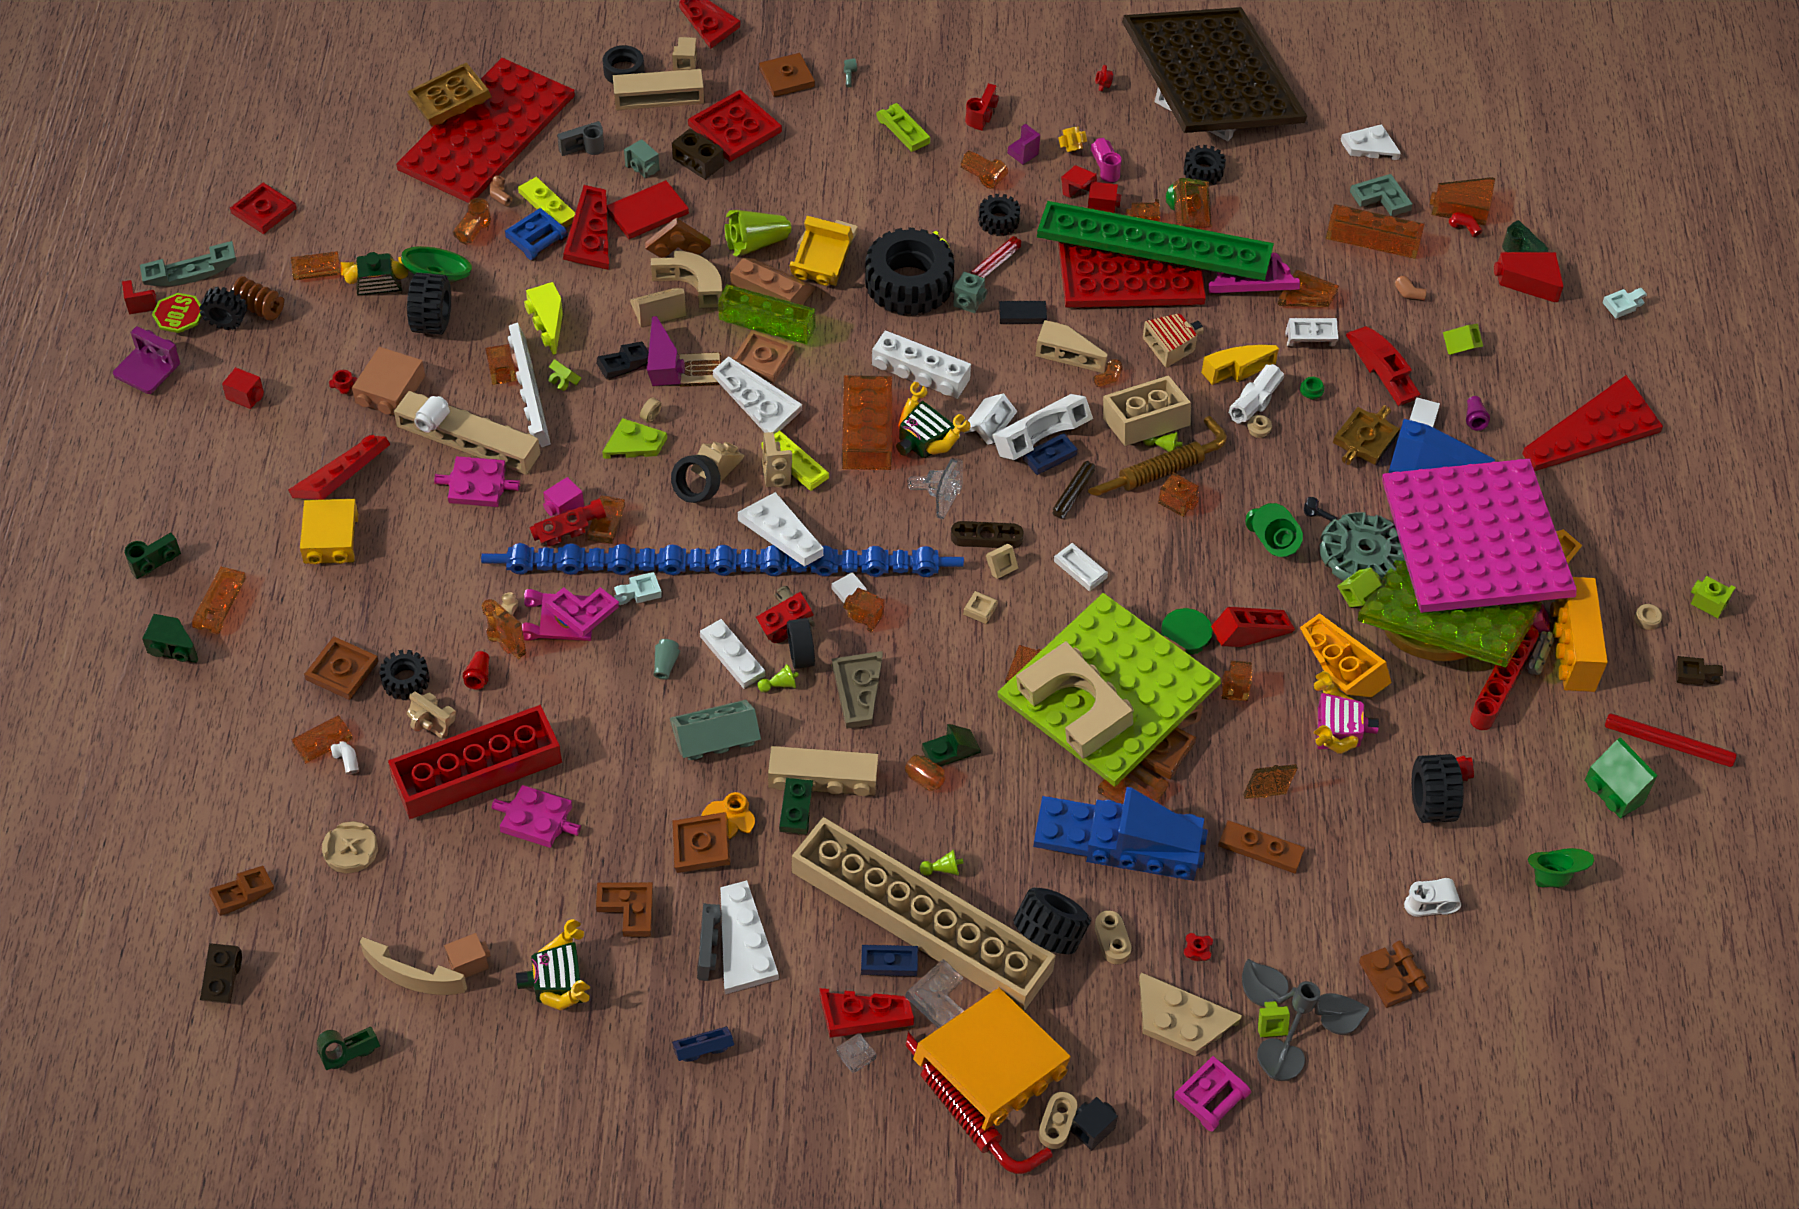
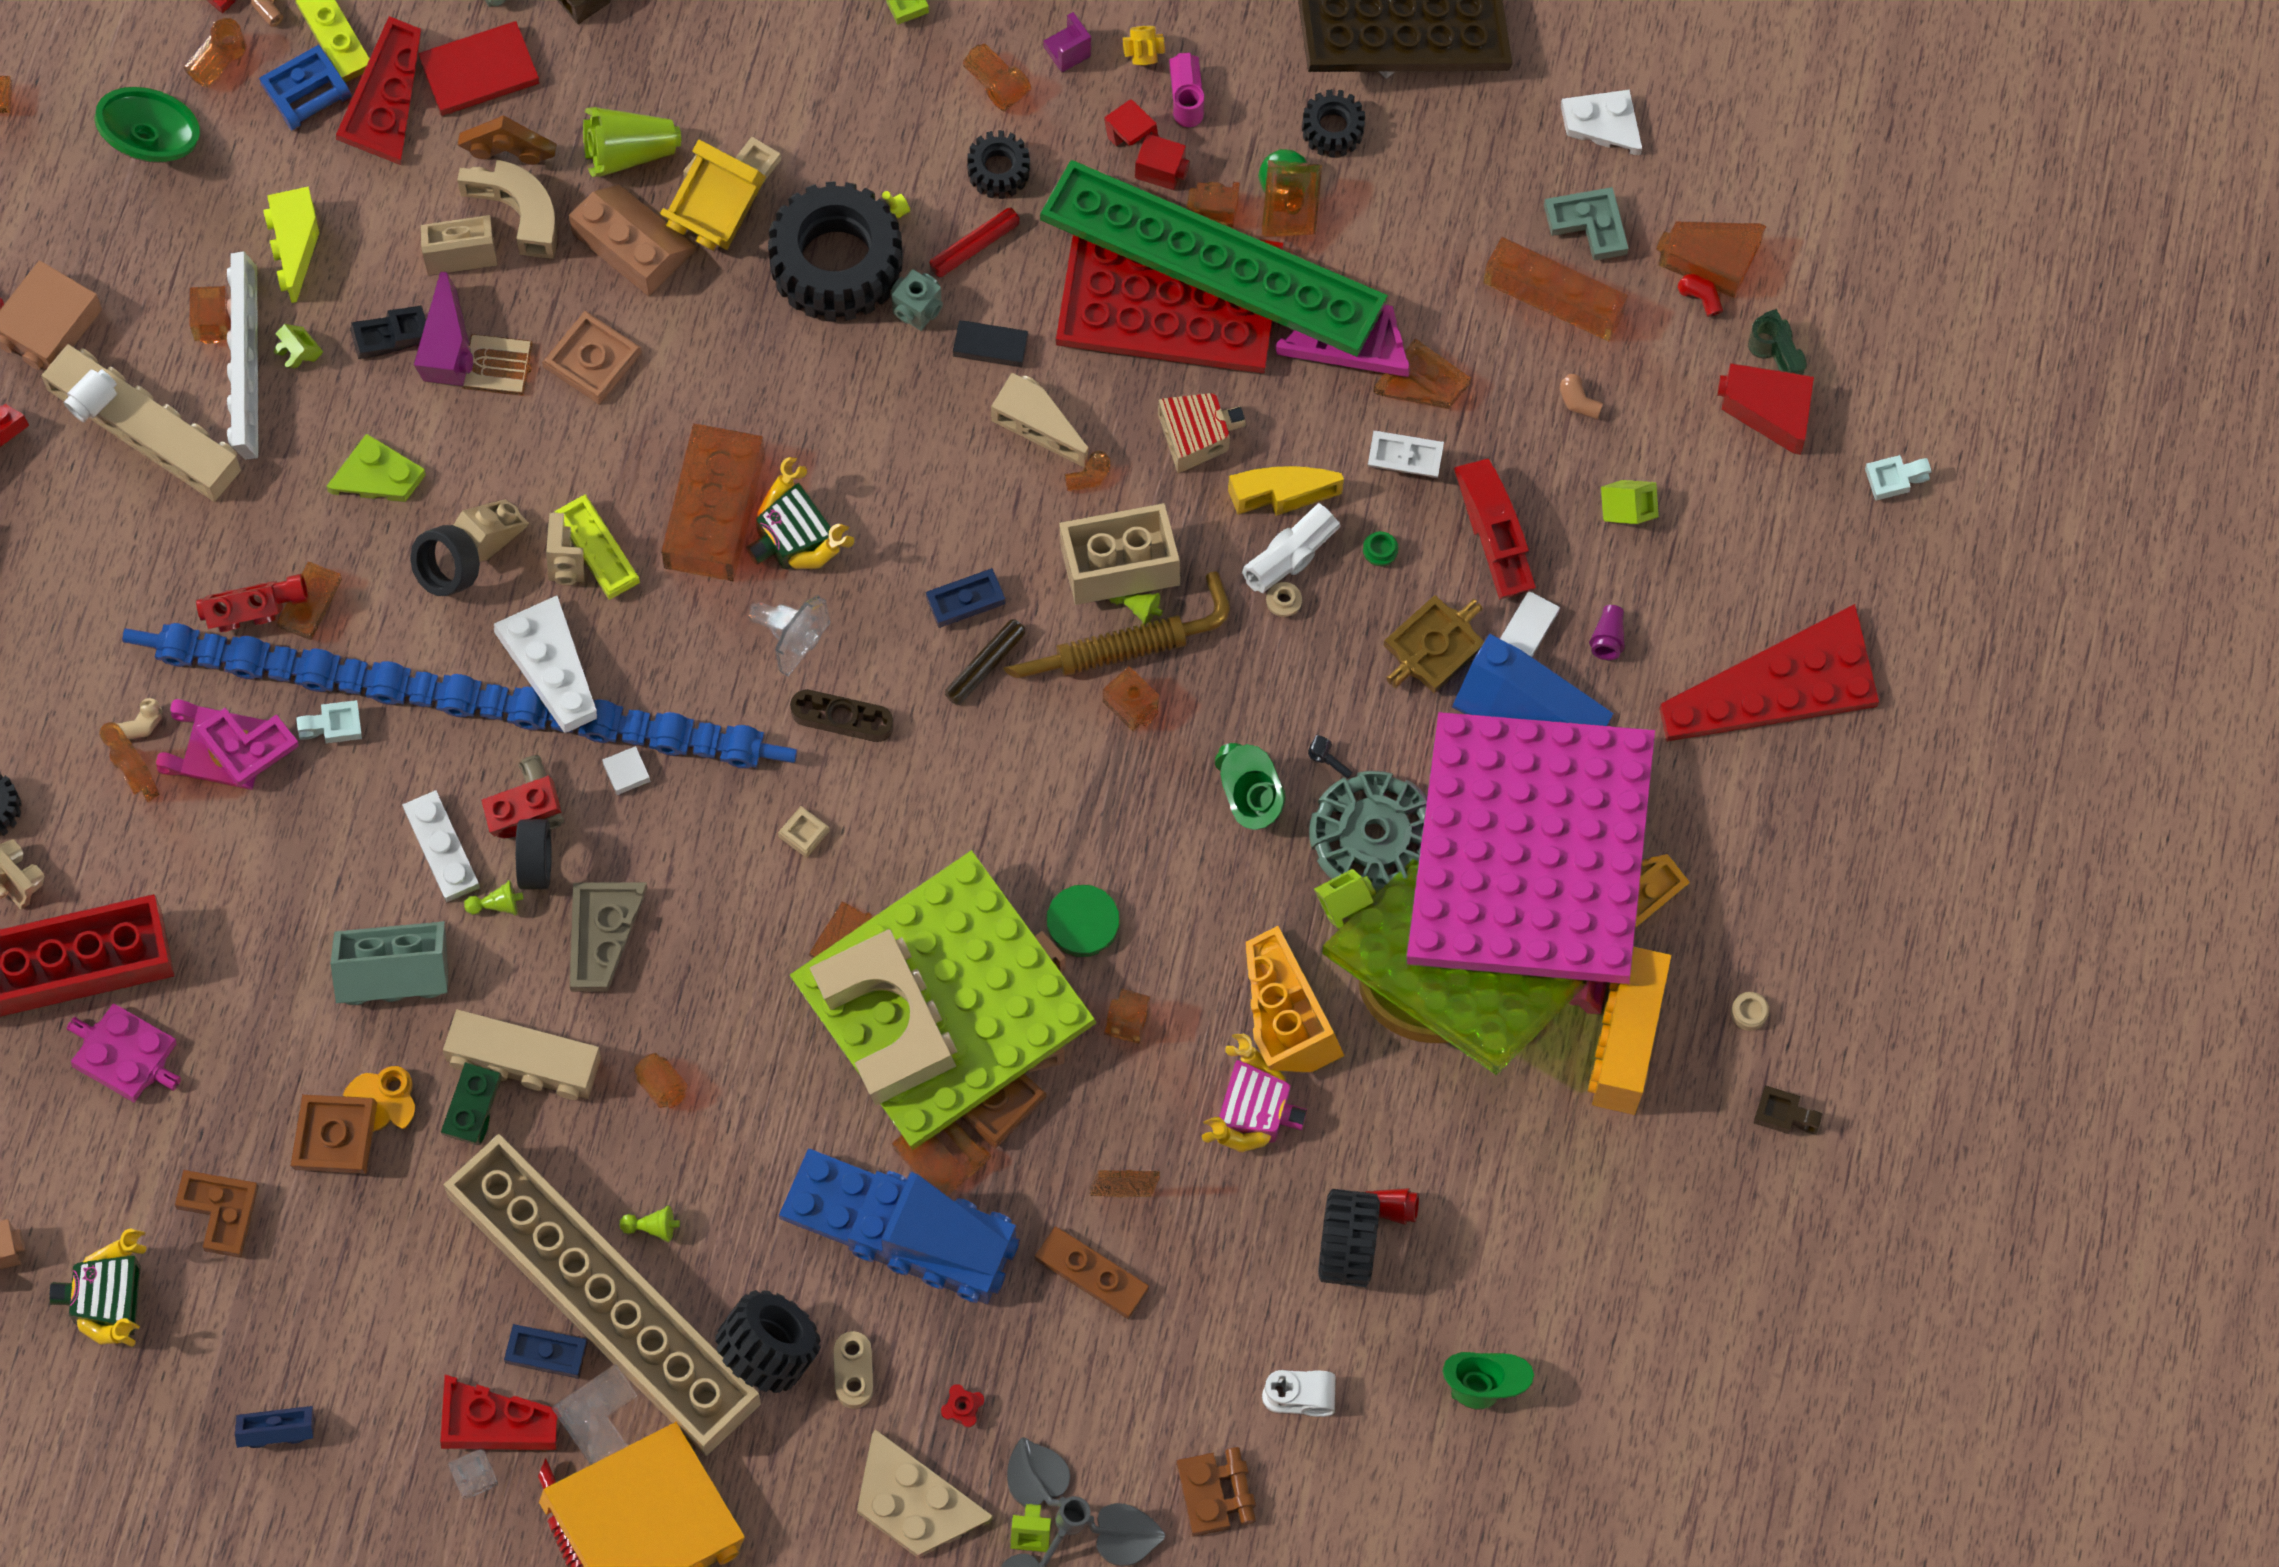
camera: 10 degrees right, 15 degrees up
(375, 273) = (53, 128): torso -> none
(429, 303) = (122, 199): black tyre -> none
(477, 481) = (141, 505): dark pink plate -> none
(477, 671) = (85, 815): red cone -> none
(562, 497) = (254, 559): dark pink brick -> none
(650, 409) = (409, 427): tan tile -> none
(665, 657) = (345, 840): sand green cone -> none
(708, 937) = (313, 1276): dark grey hinge -> none
(745, 945) = (361, 1293): white wing -> none
(758, 398) = (570, 435): white wing -> none
(766, 314) = (609, 293): clear neon green brick -> none
(865, 608) = (638, 809): clear orange brick -> none
(921, 364) = (815, 414): white brick -> none
(952, 747) = (709, 1046): dark green slope -> none
(992, 416) = (895, 522): white panel -> none
(1002, 561) = (850, 765): tan tile -> none
(1059, 416) = (996, 538): white arch -> none
(1080, 567) = (962, 790): white tile -> none
(1250, 625) = (1174, 931): red slope -> none
(1501, 684) = (1499, 1088): red beam -> none
(1540, 653) = (1573, 1043): light grey axle -> none
(1621, 778) = (1611, 1266): slope -> none
(1670, 740) = (1712, 1211): red axle -> none
(1711, 596) = (1849, 1008): lime brick -> none

